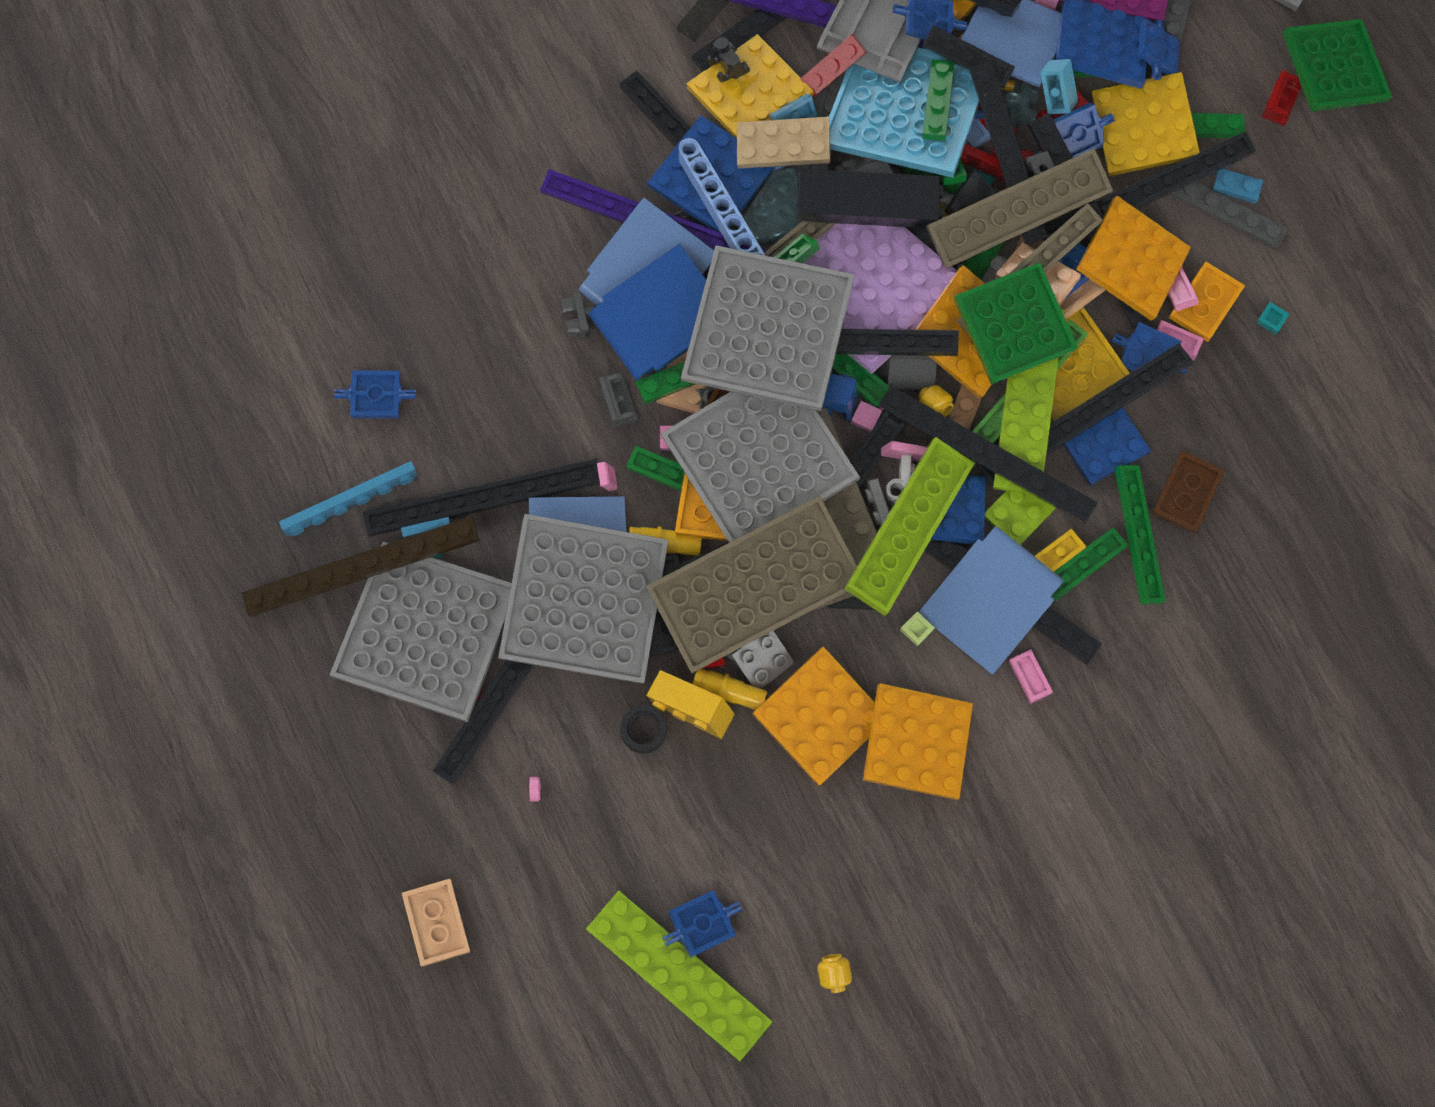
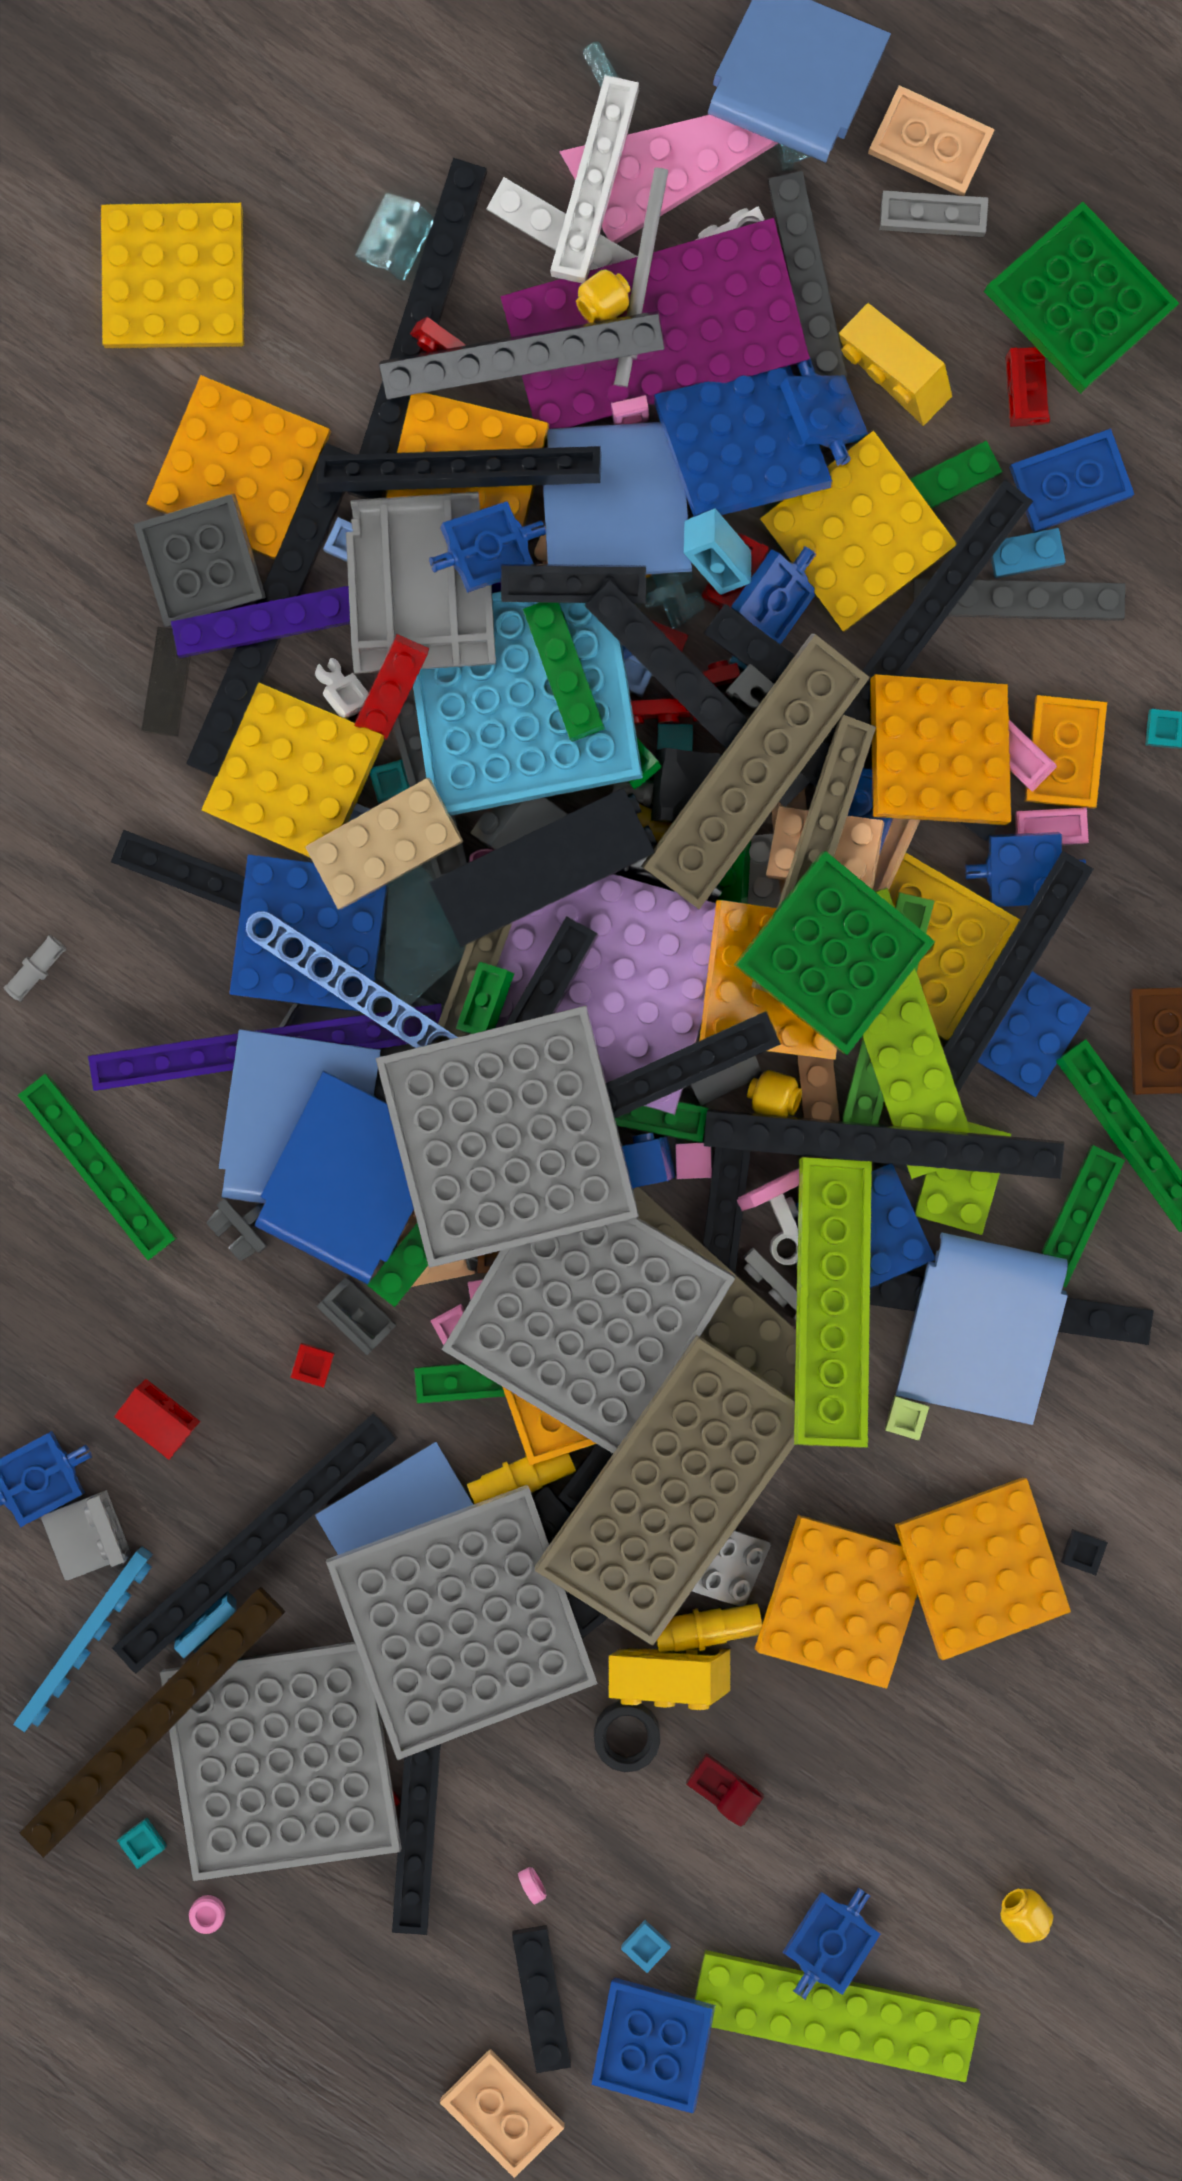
camera: 25 degrees left, 15 degrees up
(310, 639) = (142, 1843): none -> teal tile
(324, 703) = (207, 1914): none -> bright pink tile
(385, 441) = (86, 1535): none -> light grey bracket
(466, 396) = (157, 1418): none -> red hinge
(500, 865) = (541, 1999): none -> black plate
(514, 242) = (97, 1166): none -> green plate
(542, 118) = (34, 968): none -> light grey pin
(555, 927) = (653, 2045): none -> blue plate
(576, 414) = (312, 1365): none -> red plate
(584, 865) = (645, 1946): none -> dark azure plate
(607, 476) = (399, 1429): bright pink tile -> none
(686, 794) = (725, 1789): none -> dark red plate
(728, 60) = (240, 752): black piece -> none
(800, 108) = (374, 782): dark azure plate -> none
(801, 60) = (342, 693): none -> white plate
(851, 254) = (555, 972): none -> black plate
(986, 766) = (1084, 1552): none -> black plate
(1030, 676) = (1082, 1400): bright pink tile -> none
(1061, 550) = (1039, 1215): yellow plate -> none
(1213, 49) = (897, 363): none -> yellow wedge
(1284, 159) = (1072, 480): none -> blue plate

